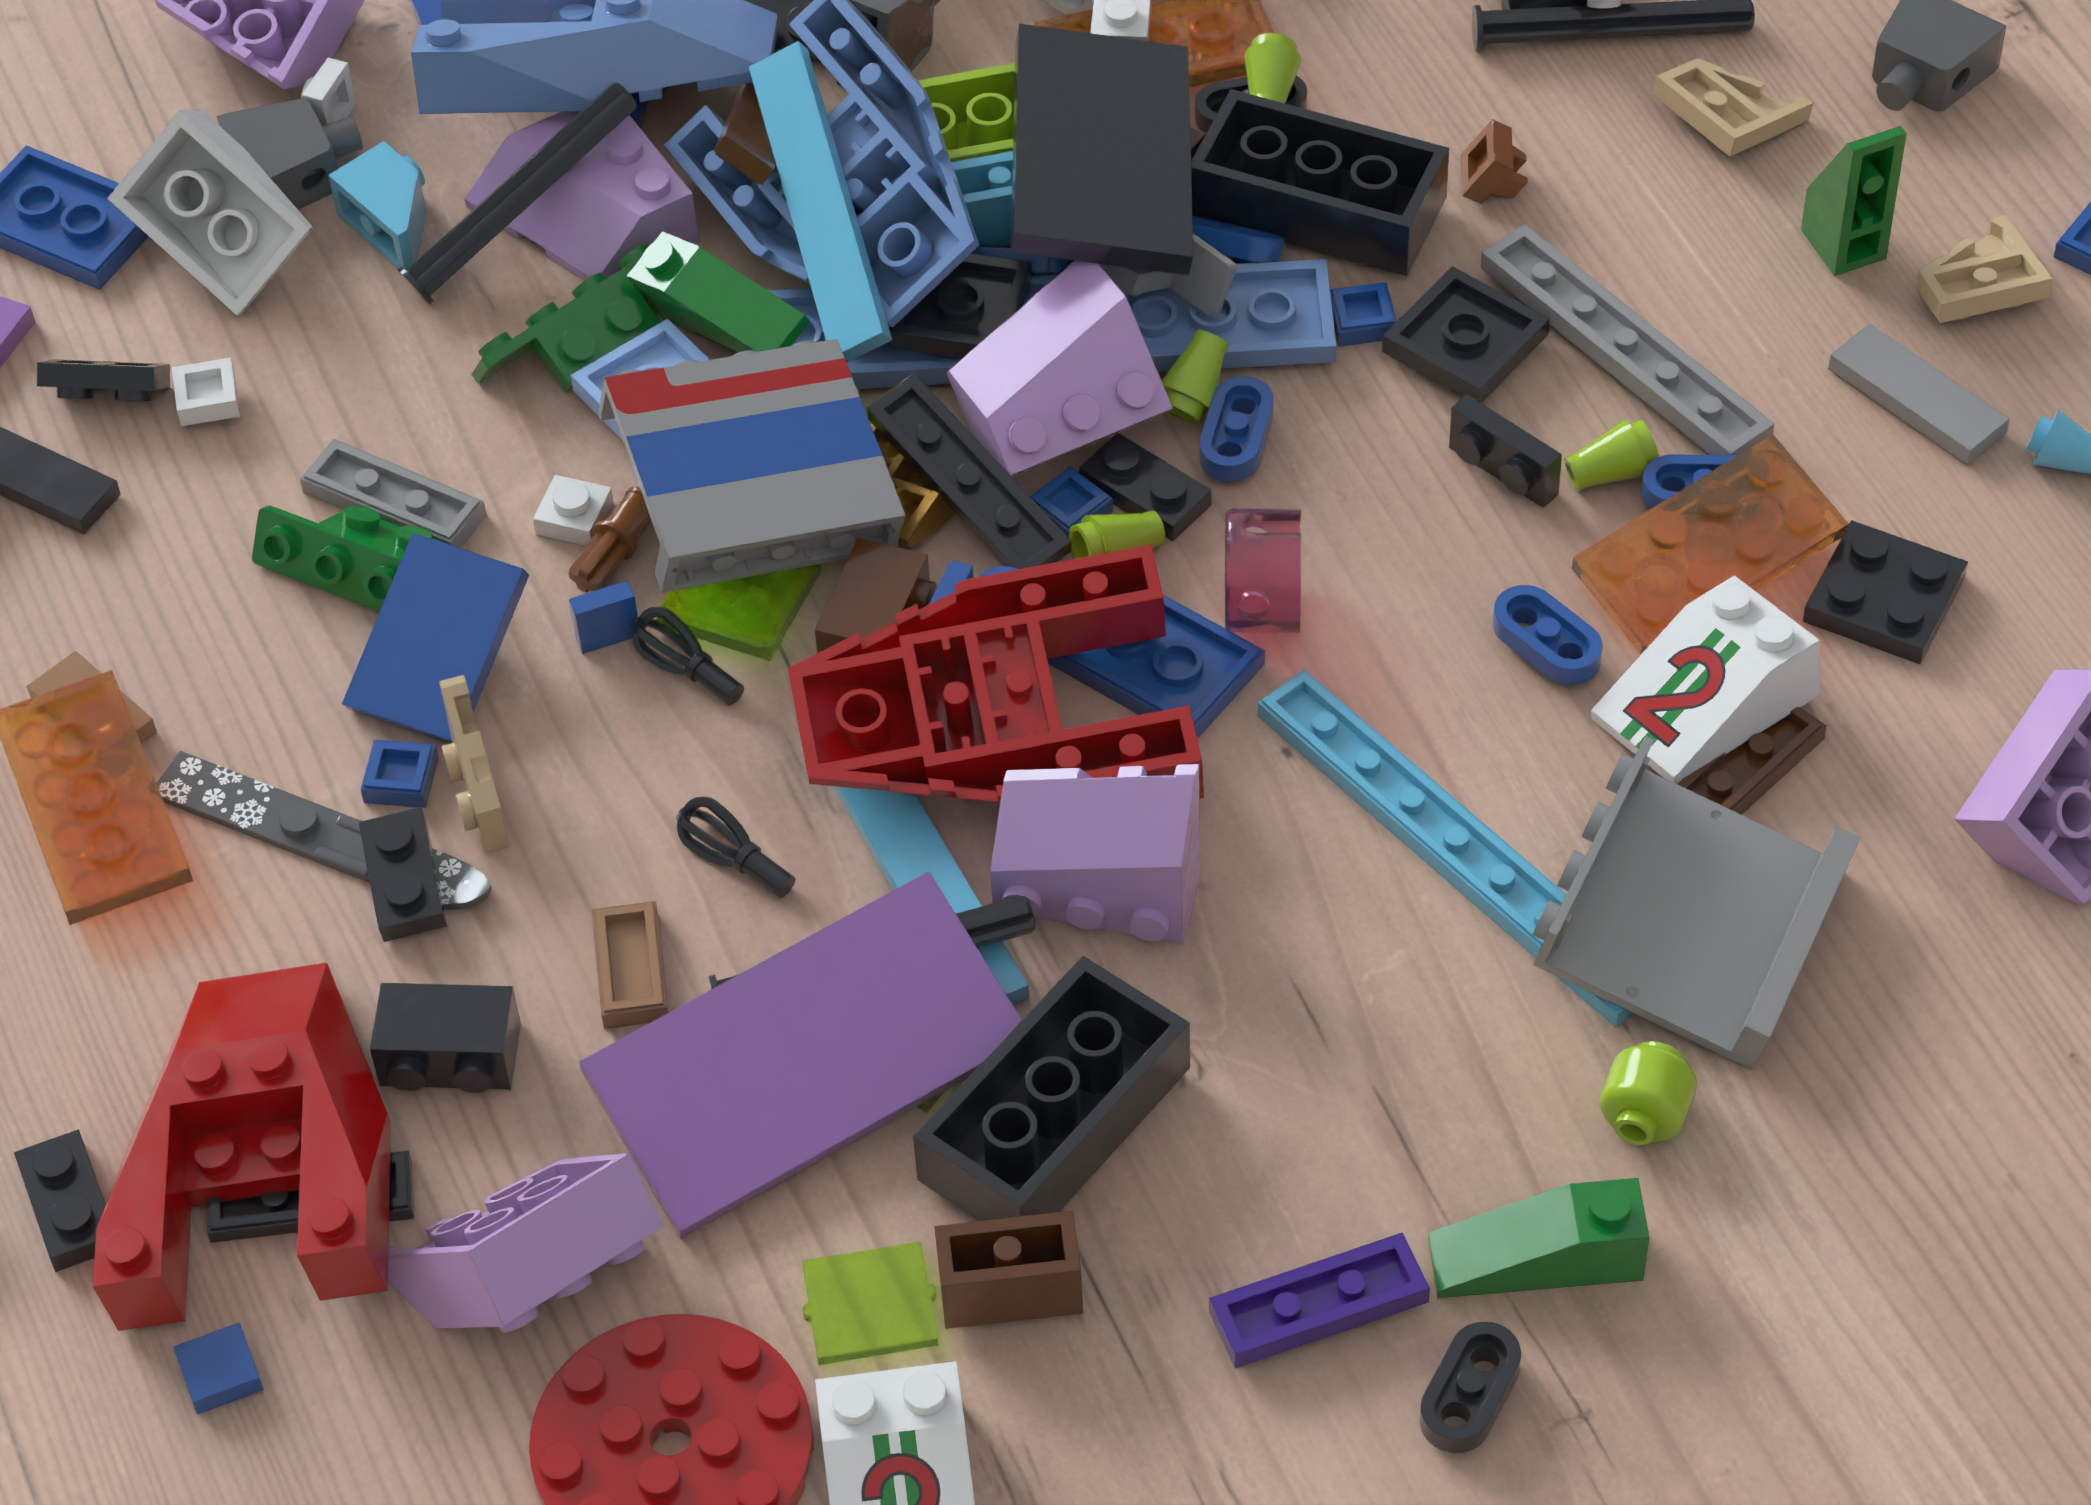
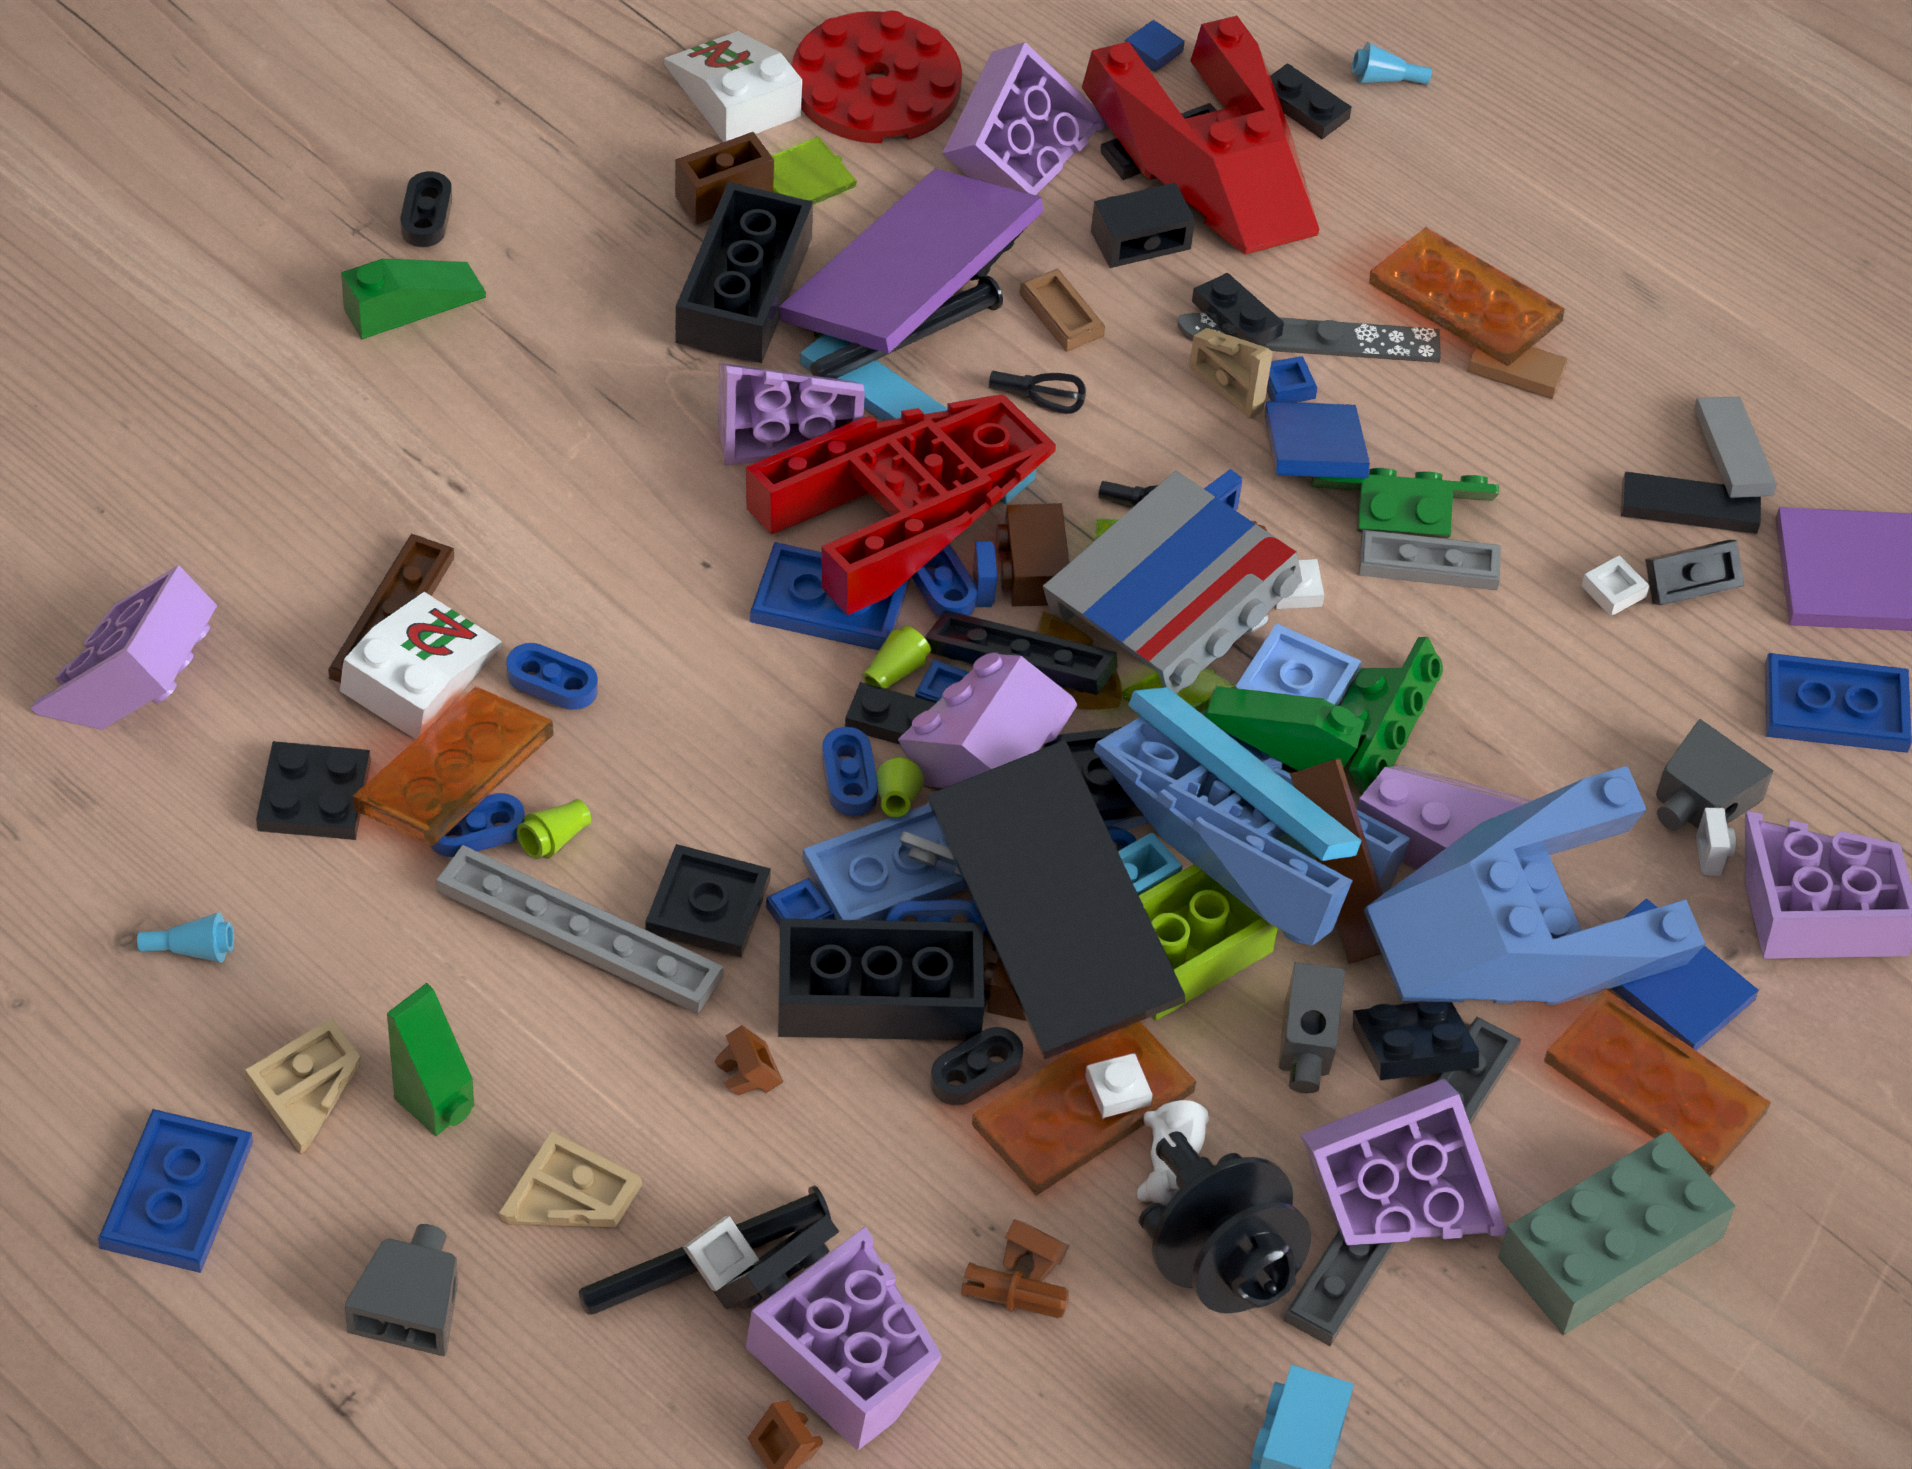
camera: 150 degrees right, 0 degrees up
(211, 208) = (1719, 691): white slope -> none
(383, 202) = (1589, 749): medium azure slope -> none
(519, 191) = (1526, 714): black axle -> none
(1263, 570) = (770, 632): clear pink piece -> none
(1271, 66) = (965, 1060): lime cone -> none
(1319, 1300) = (535, 229): dark purple plate -> none
(1419, 813) = (563, 527): medium azure tile -> none
(1505, 451) = (637, 804): black plate -> none
(1649, 1091) = (373, 386): lime head -> none
(1689, 911) = (378, 506): light grey panel -> none
(1918, 393) = (332, 963): light grey tile -> none

